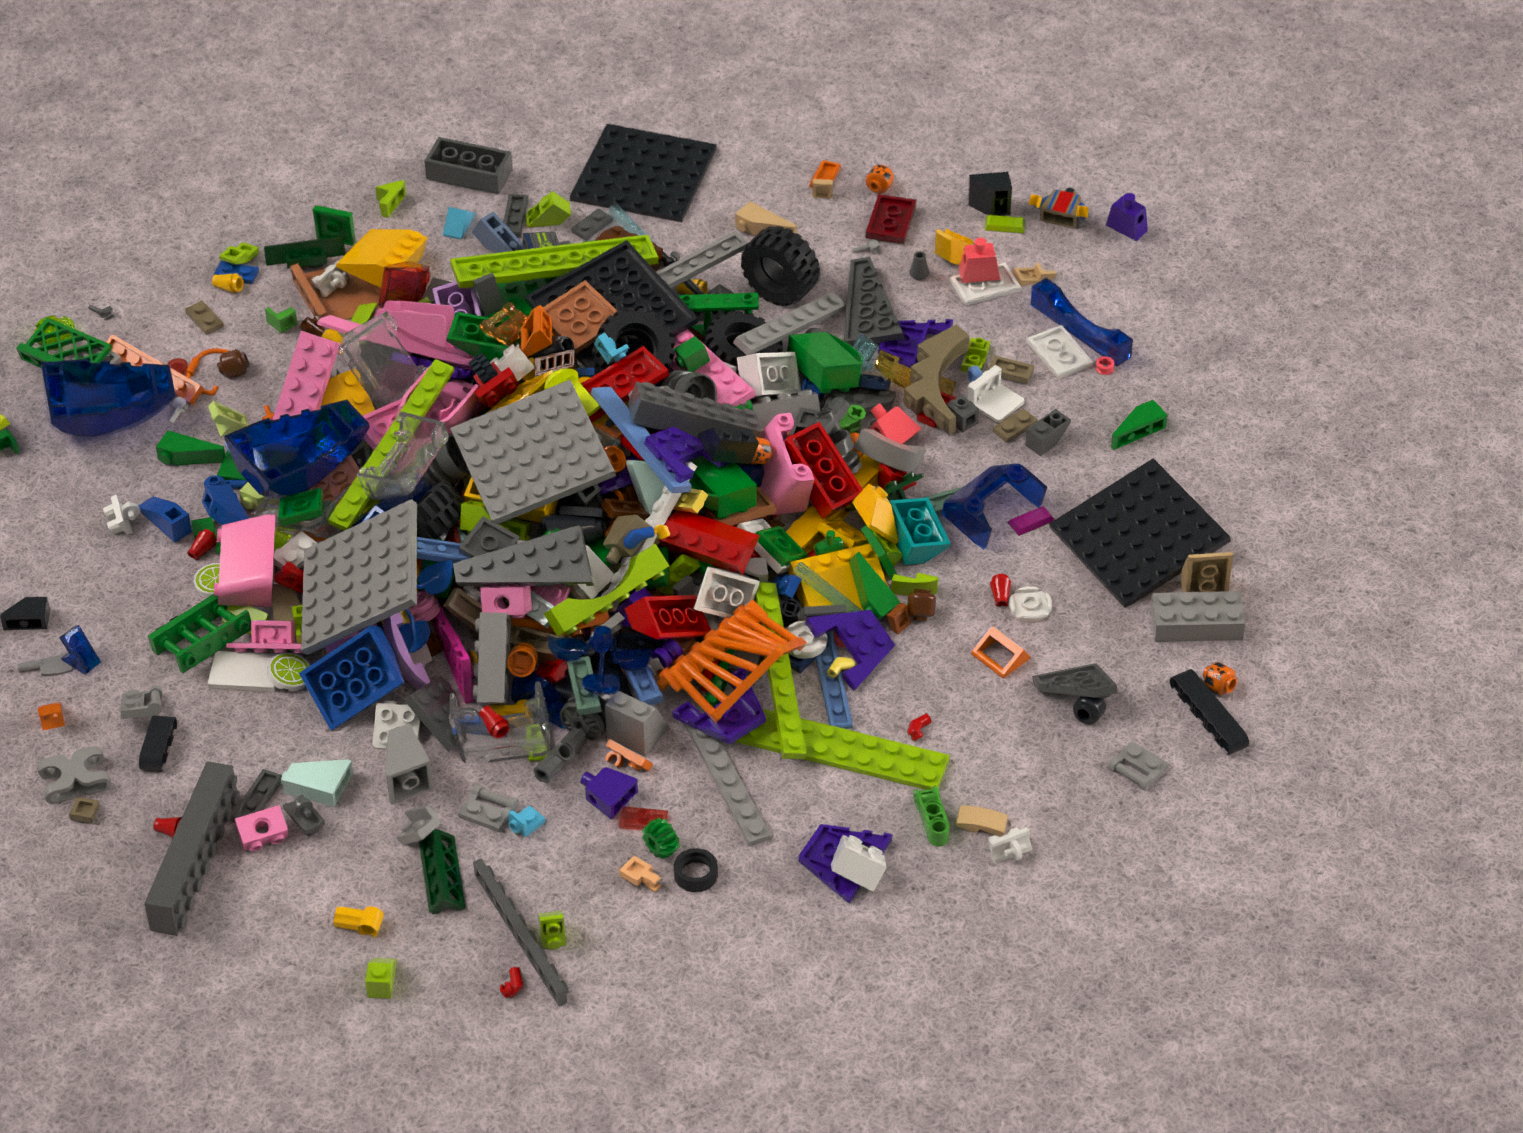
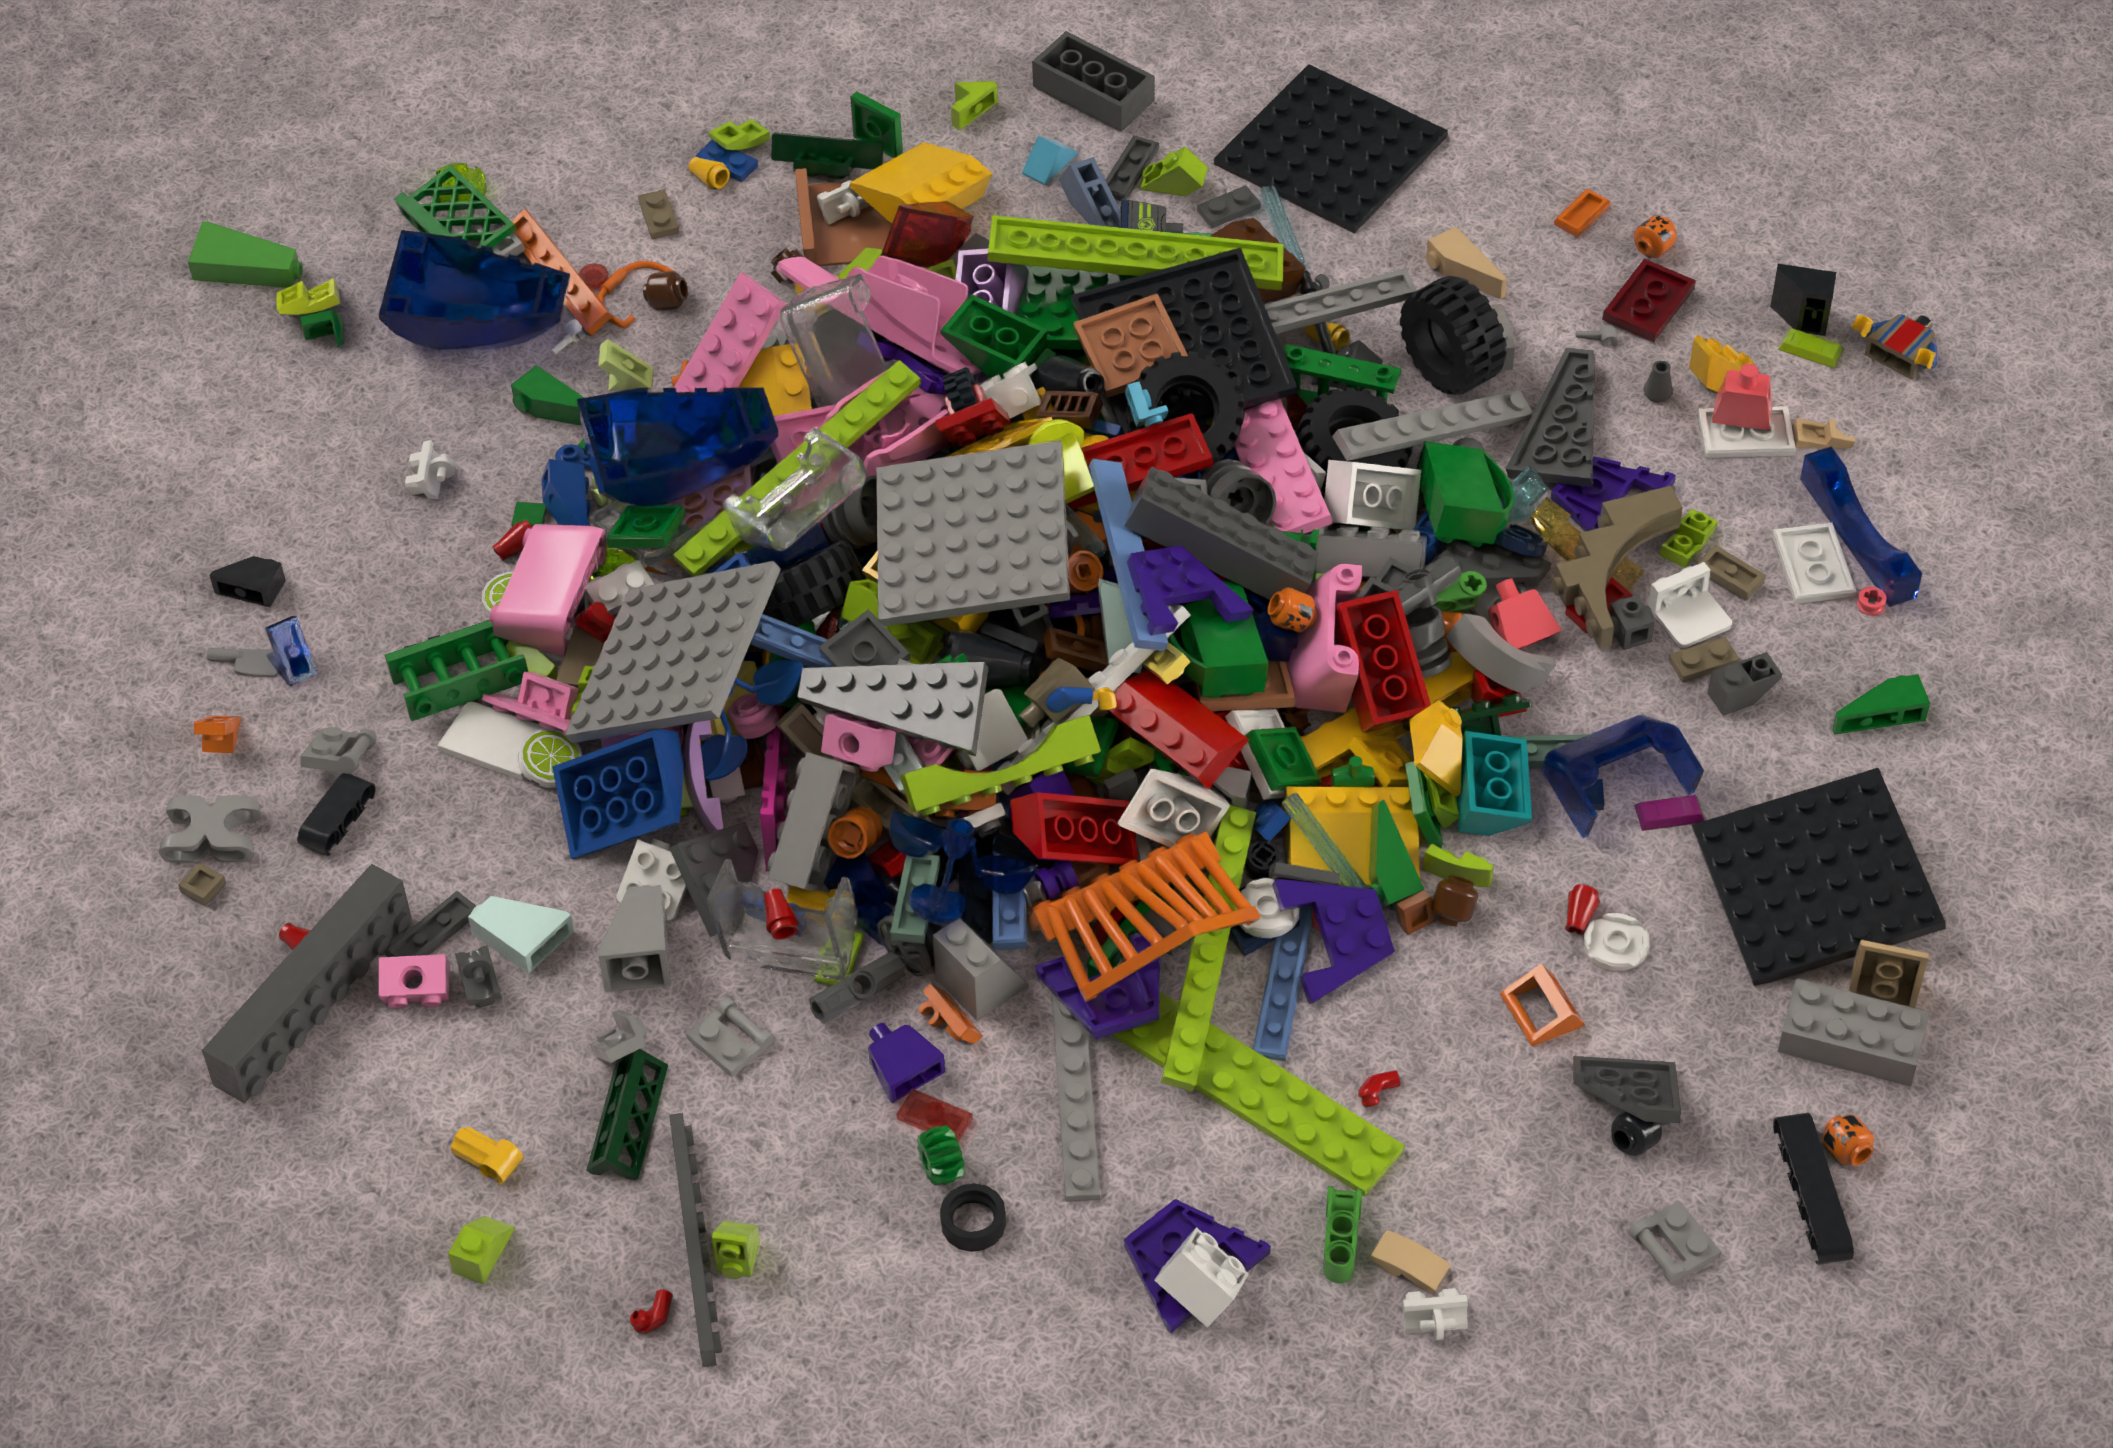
camera: 20 degrees right, 5 degrees up
(103, 312) = (532, 175): dark grey hand -> none
(167, 517) = (485, 489): blue slope -> none
(283, 320) = (758, 244): bright green panel -> none
(488, 294) = (1026, 278): dark grey tile -> none
(510, 329) = (1035, 337): clear orange plate -> none
(525, 821) = (772, 1072): medium azure bracket -> none
(541, 325) = (1060, 353): orange tile -> none
(638, 871) = (893, 1195): light nougat plate -> none
(691, 355) = (1263, 440): green brick -> none
(729, 444) = (1249, 595): black slope -> none
(822, 188) = (1568, 231): tan tile -> none
(839, 664) = (1303, 959): light yellow arm -> none
(974, 373) = (1674, 564): medium blue tile -> none
(1128, 217) = (1992, 383): dark purple torso -> none

